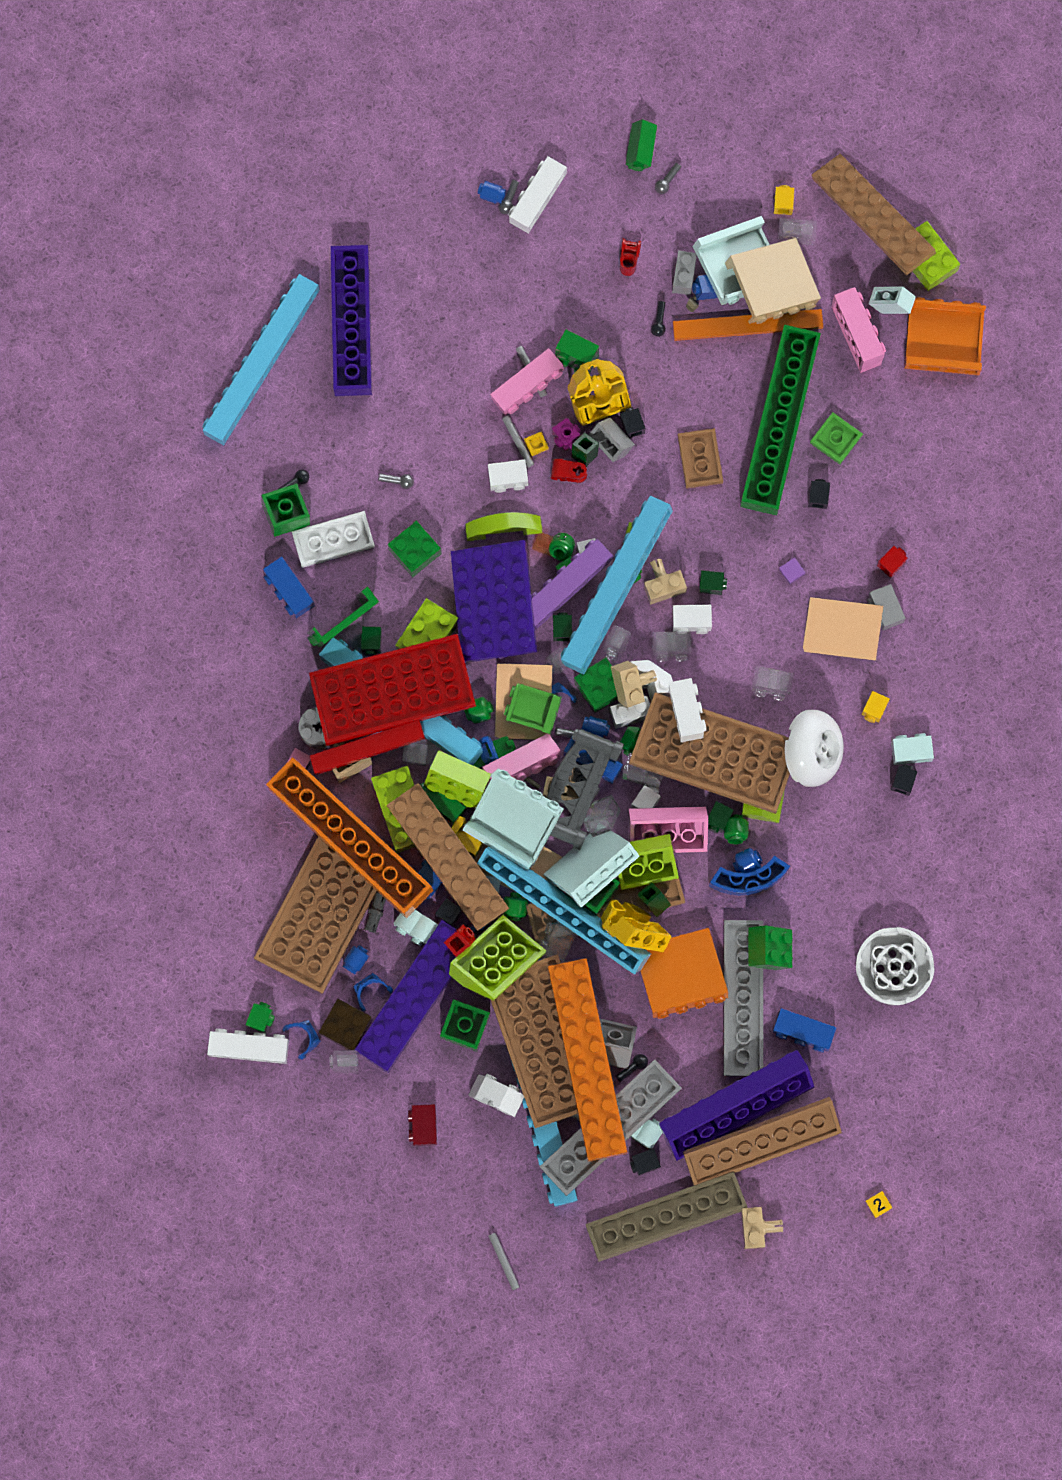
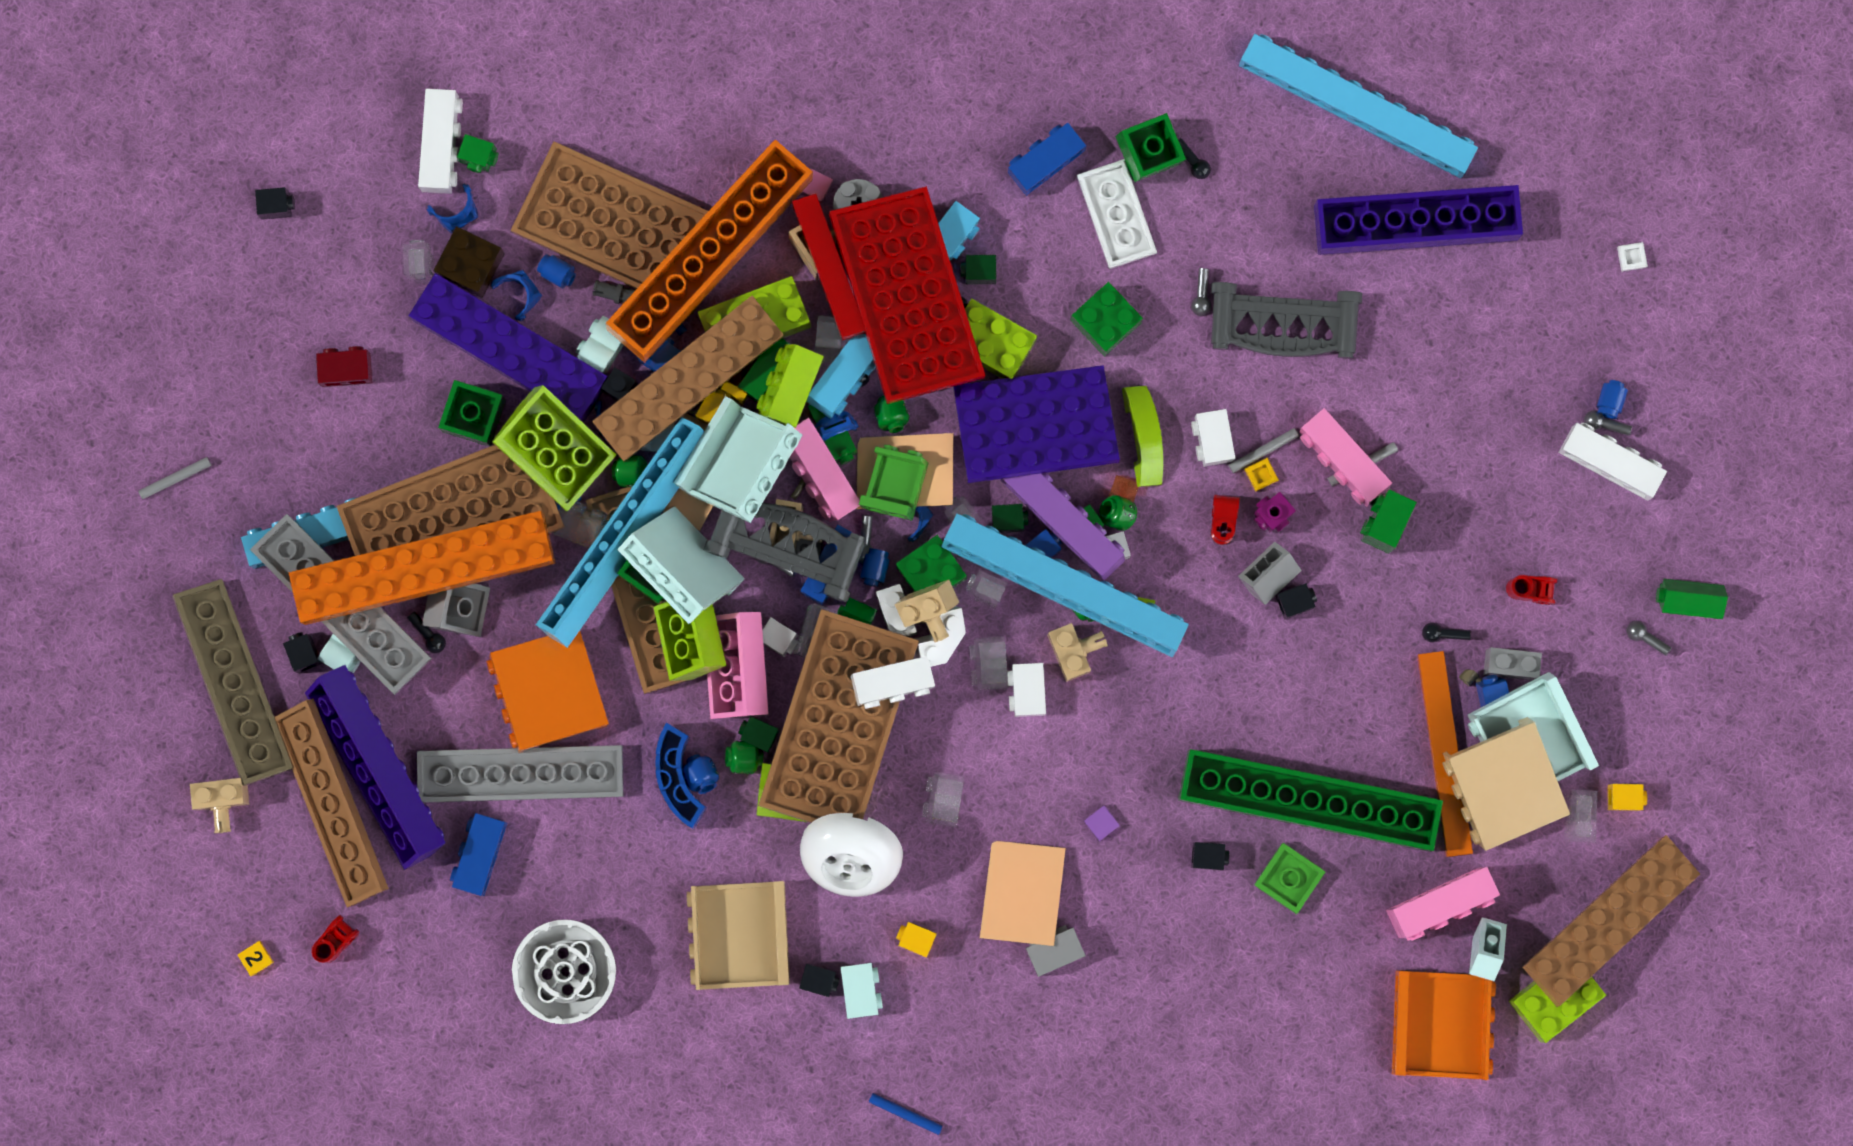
camera: 85 degrees right, 5 degrees up
(290, 1177) = (274, 203): none -> black brick
(367, 600) = (1024, 256): green panel -> none
(385, 172) = (1632, 256): none -> white tile
(420, 381) = (1339, 316): none -> dark grey piece
(460, 940) = (574, 396): red brick -> none
(497, 1095) = (378, 462): white brick -> none
(581, 600) = (1046, 542): none -> blue brick
(585, 449) = (1253, 538): dark green brick -> none
(601, 816) = (751, 578): clear brick -> none
(608, 390) = (1339, 565): yellow connector -> none
(633, 926) = (599, 622): yellow connector -> none
(654, 899) = (640, 649): dark green brick -> none
(700, 458) = (1252, 695): medium nougat tile -> none
(712, 582) = (1078, 716): dark green brick -> none
(770, 947) = (583, 805): green brick -> none
(866, 1141) = (335, 939): none -> red piece
(869, 837) = (738, 935): none -> tan panel
(892, 561) = (1120, 959): red brick -> none
(1003, 721) = (905, 1114): none -> blue bar

